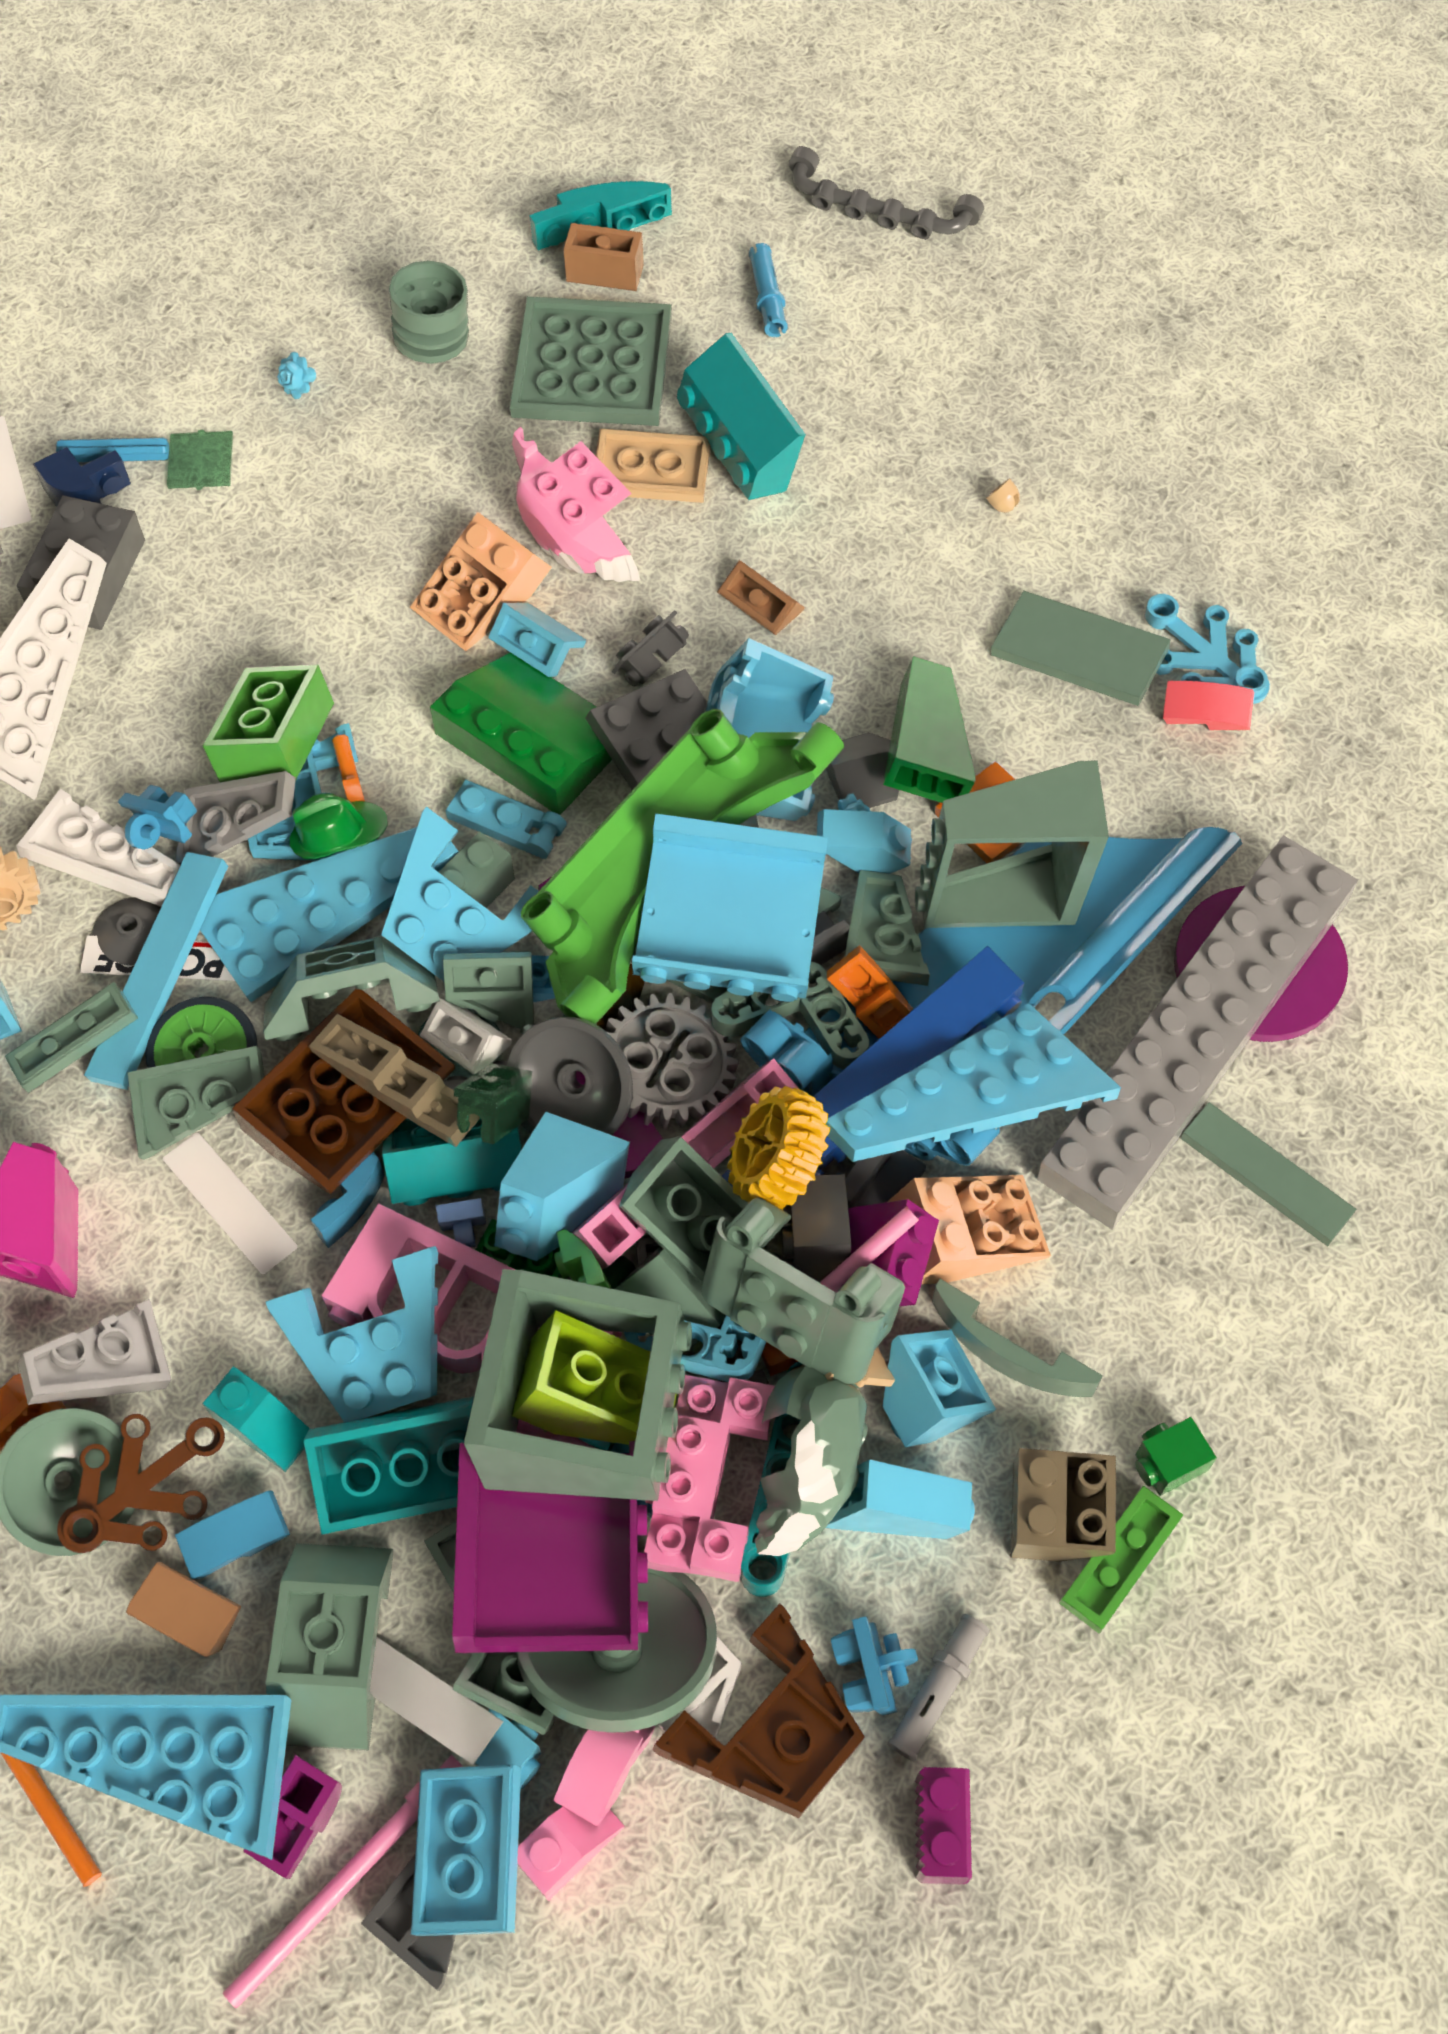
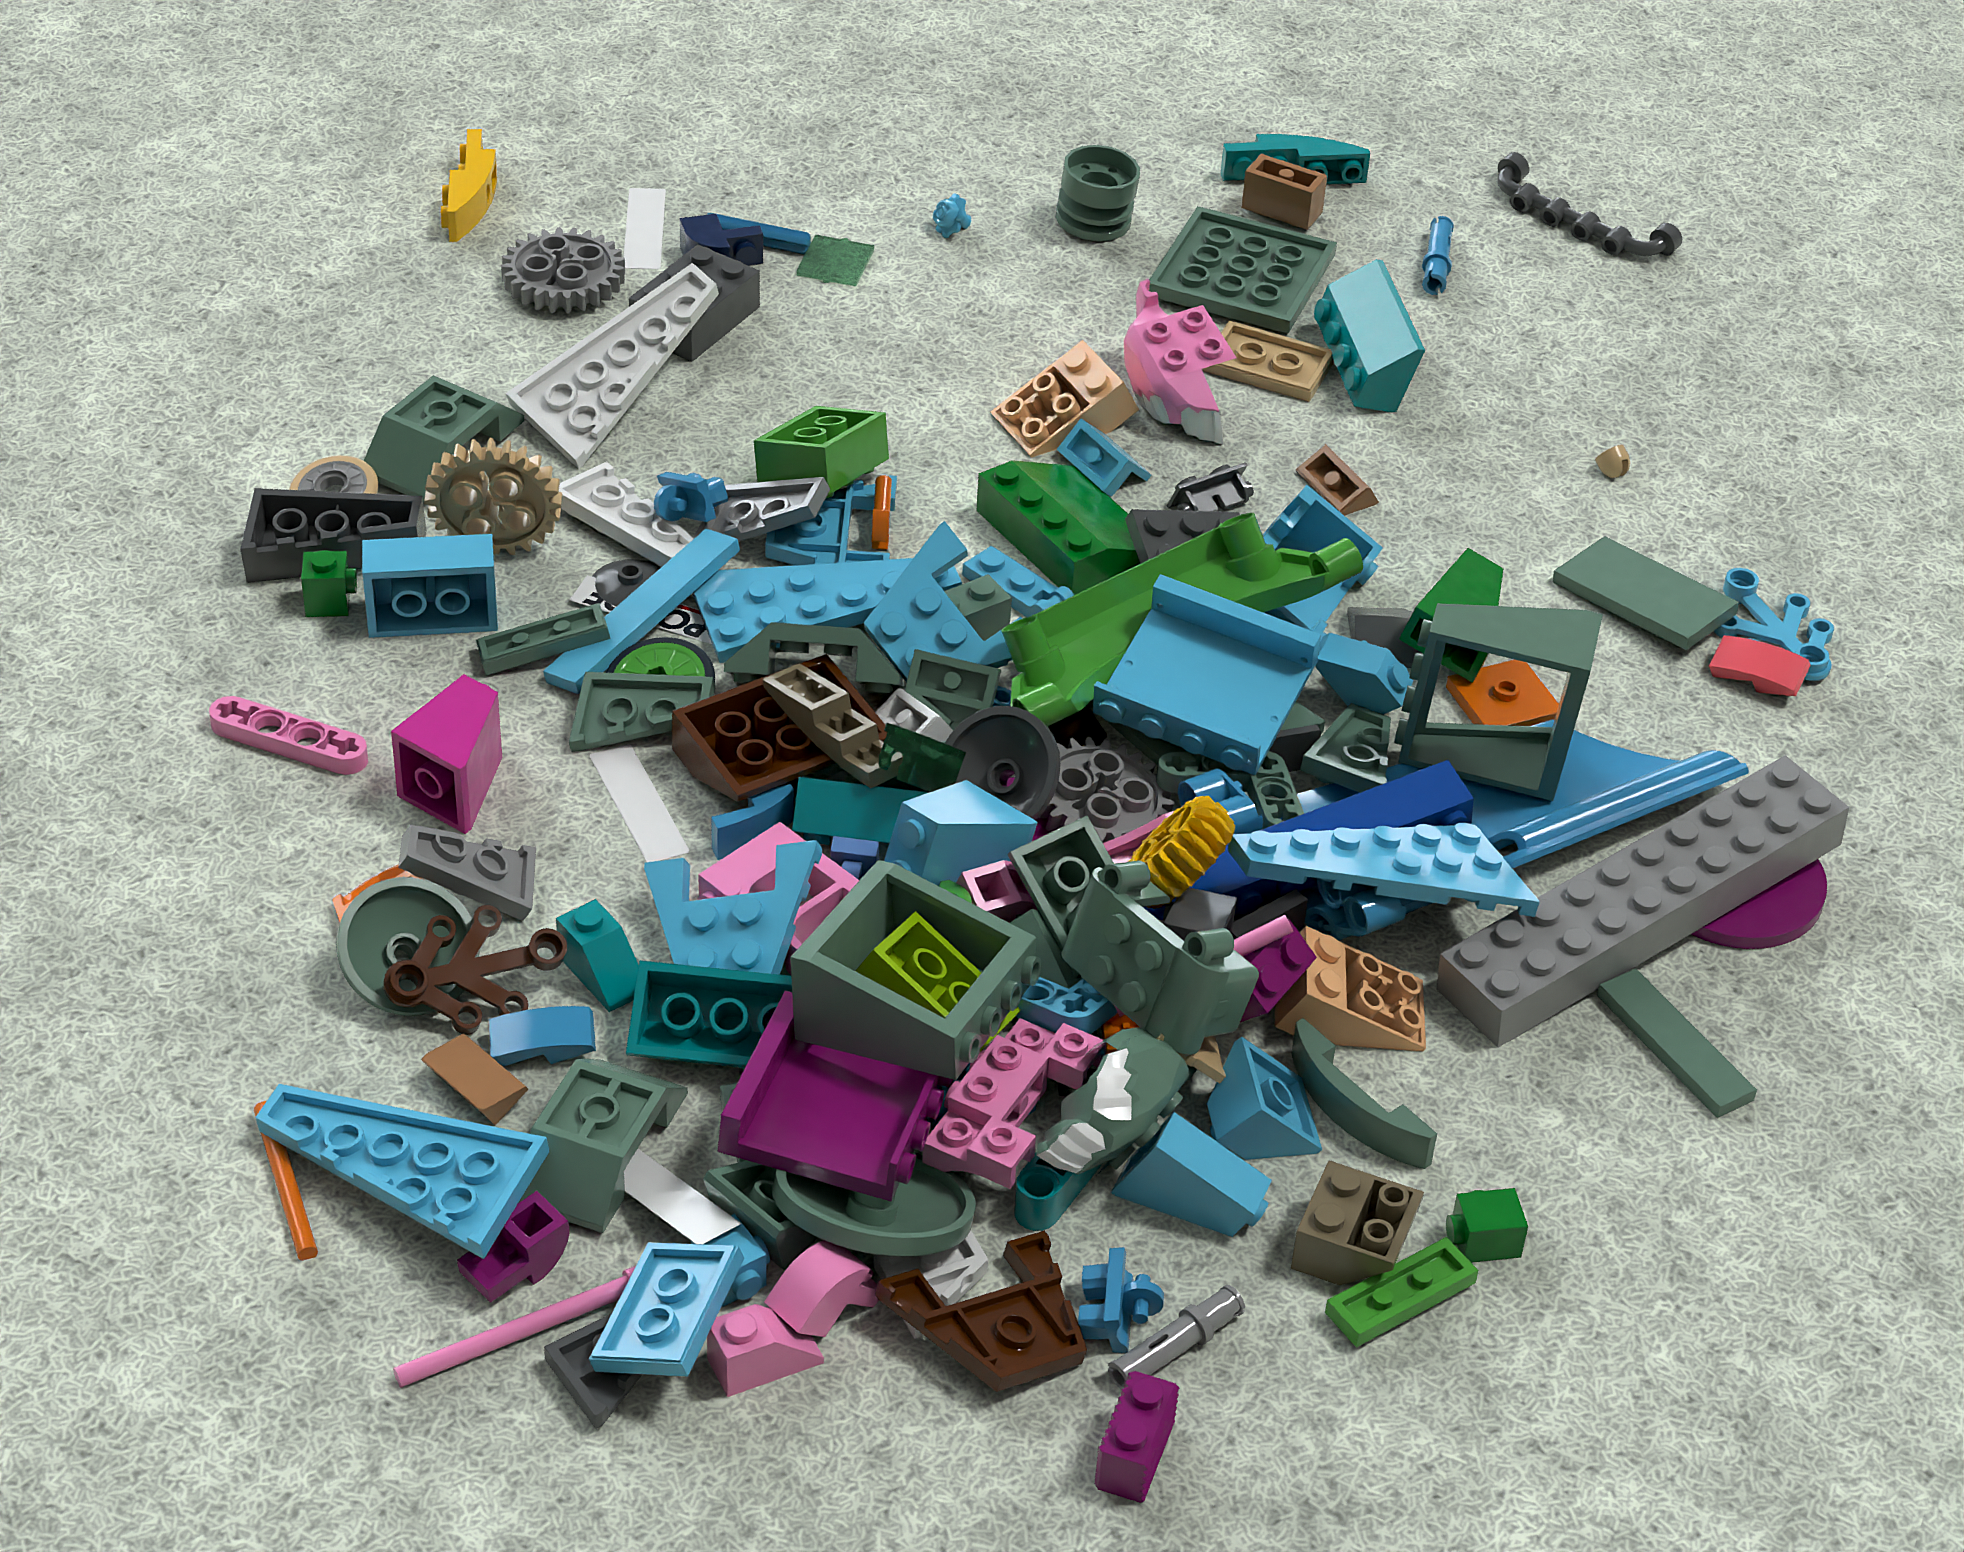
camera: 15 degrees right, 20 degrees down
(334, 824) = (850, 534): green piece -> none
(869, 991) = (1316, 777): orange slope -> none

